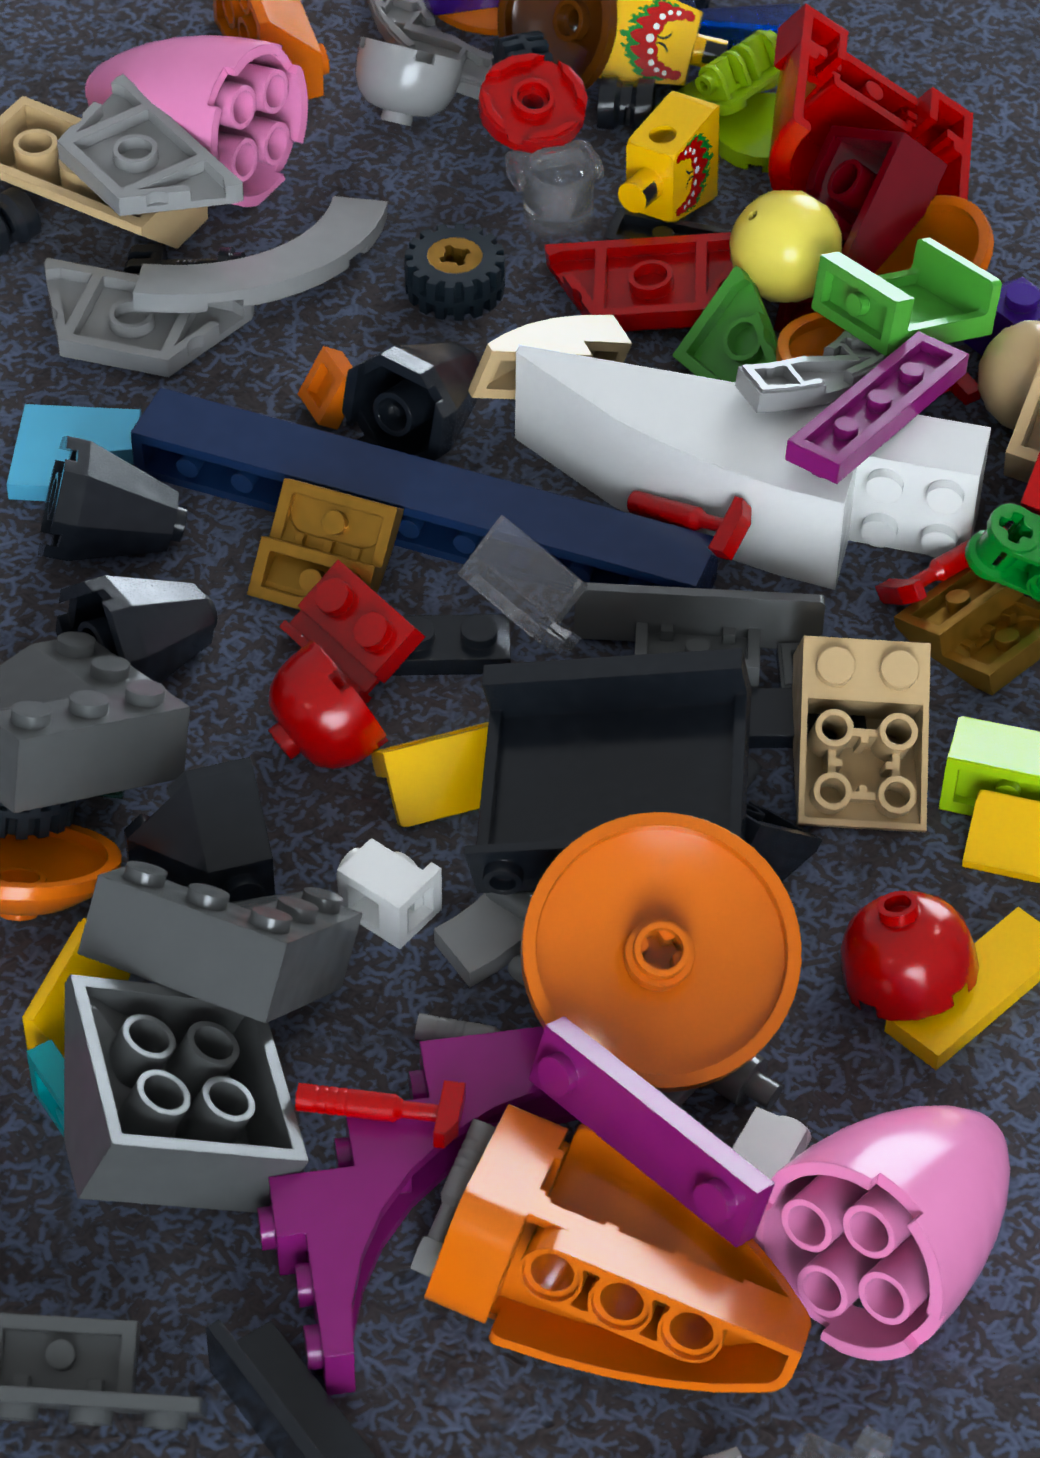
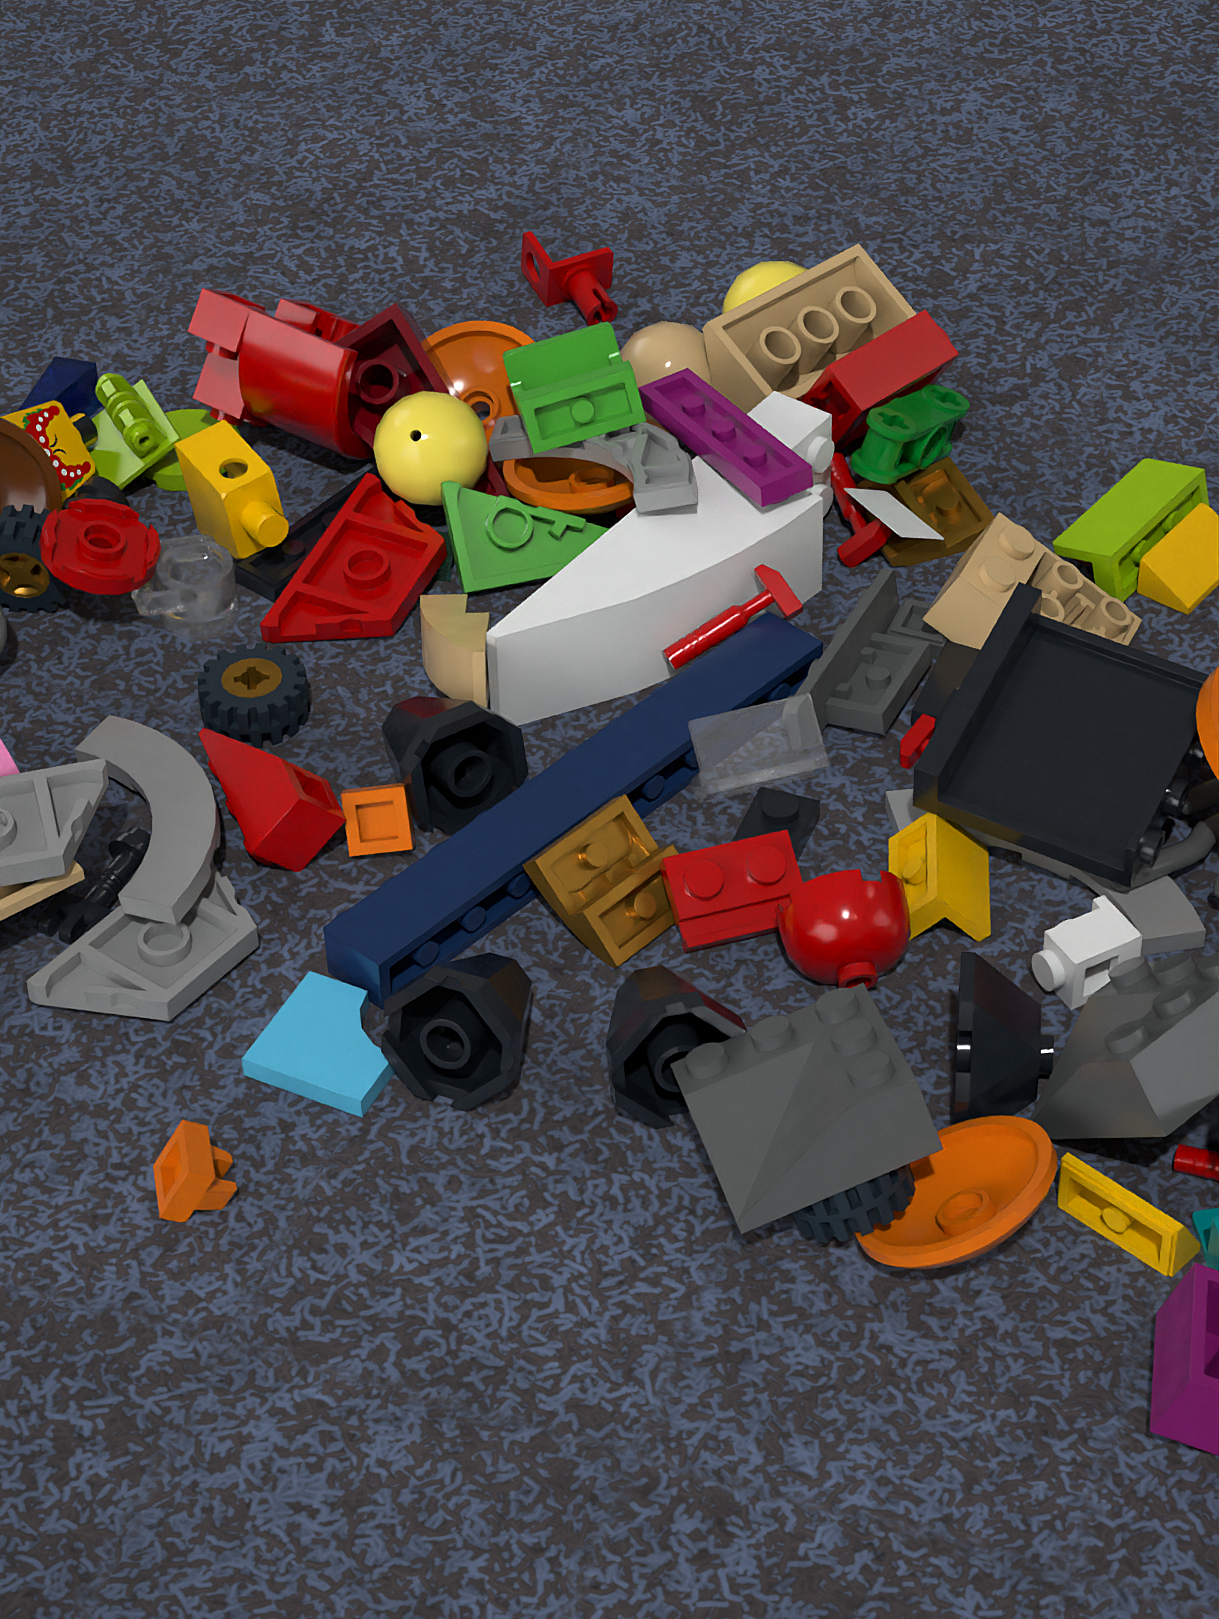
camera: 65 degrees left, 5 degrees down
(325, 313) = (277, 804): none -> red slope
(932, 590) = (893, 513): none -> white sticker

